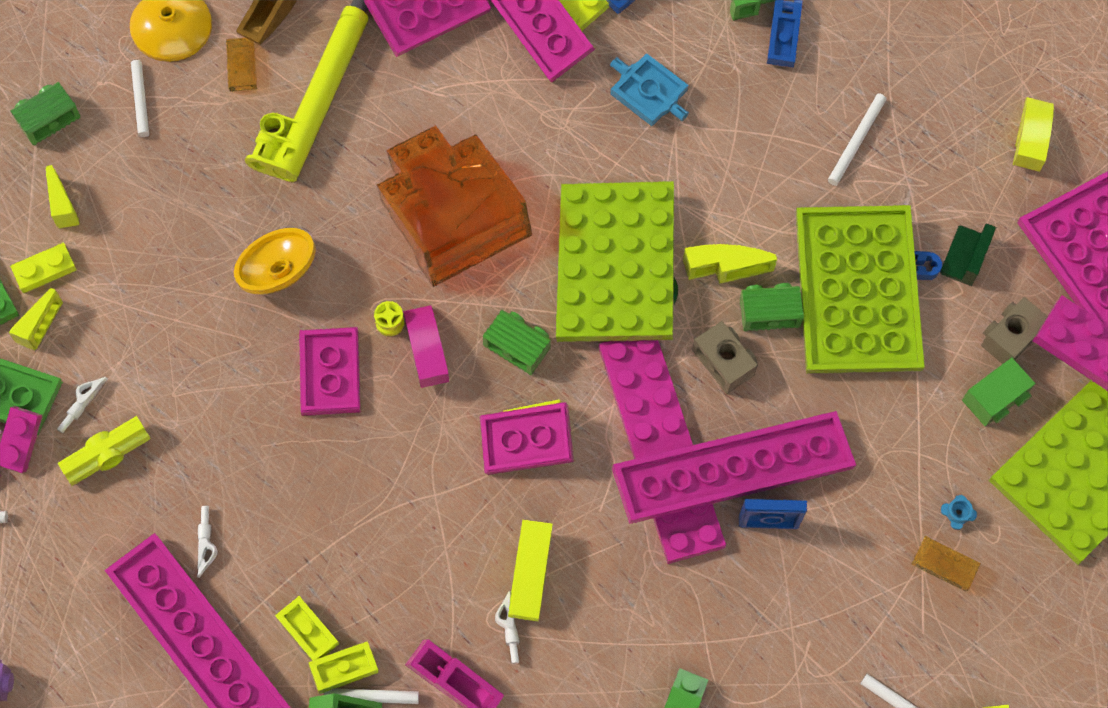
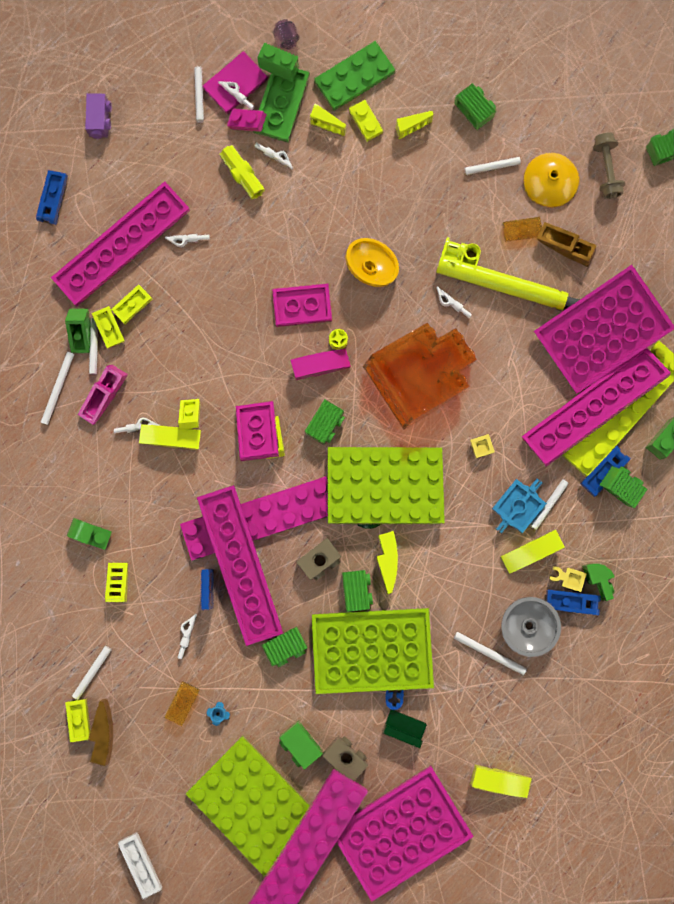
camera: 90 degrees right, 15 degrees up
(342, 163) = (451, 302): none -> white hand
(495, 536) = (189, 414): none -> neon yellow plate
(561, 131) = (482, 446): none -> light yellow plate
(641, 49) = (550, 503): none -> white bar
(714, 74) = (532, 551): none -> neon yellow slope
(752, 30) = (571, 579): none -> light yellow plate
(773, 673) = (108, 594): none -> neon yellow slope
(821, 66) = (544, 630): none -> light grey dish
(839, 556) = (186, 635): none -> white hand
(856, 409) = (285, 646): none -> bright green brick
(999, 686) = (102, 734): none -> pearl gold slope

